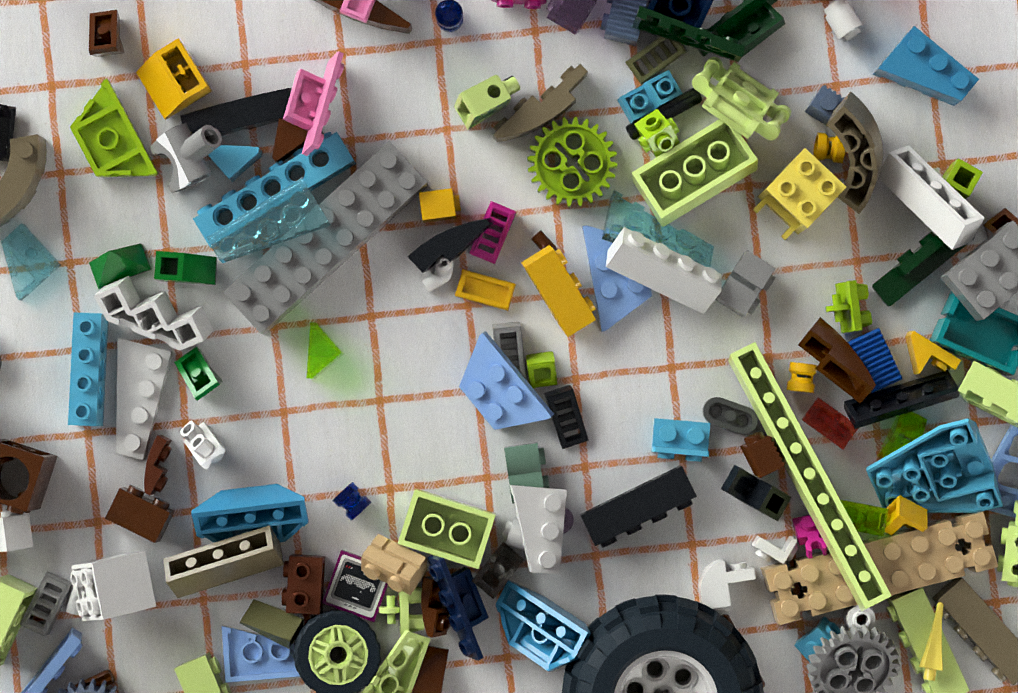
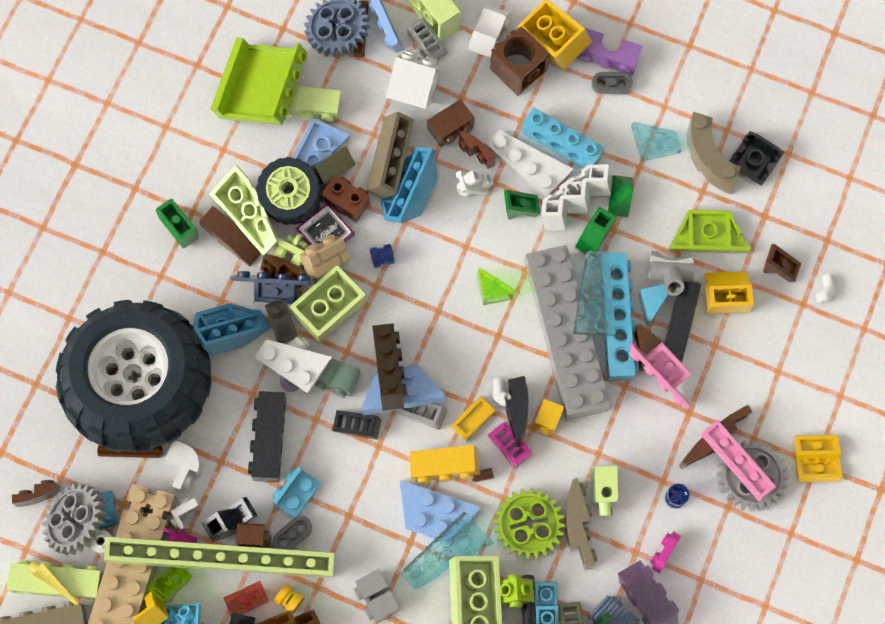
camera: 110 degrees right, 15 degrees down
(484, 416) = (388, 366): none -> dark brown brick
(541, 369) = (398, 426): lime slope -> none
(664, 270) = (417, 541): white brick -> none

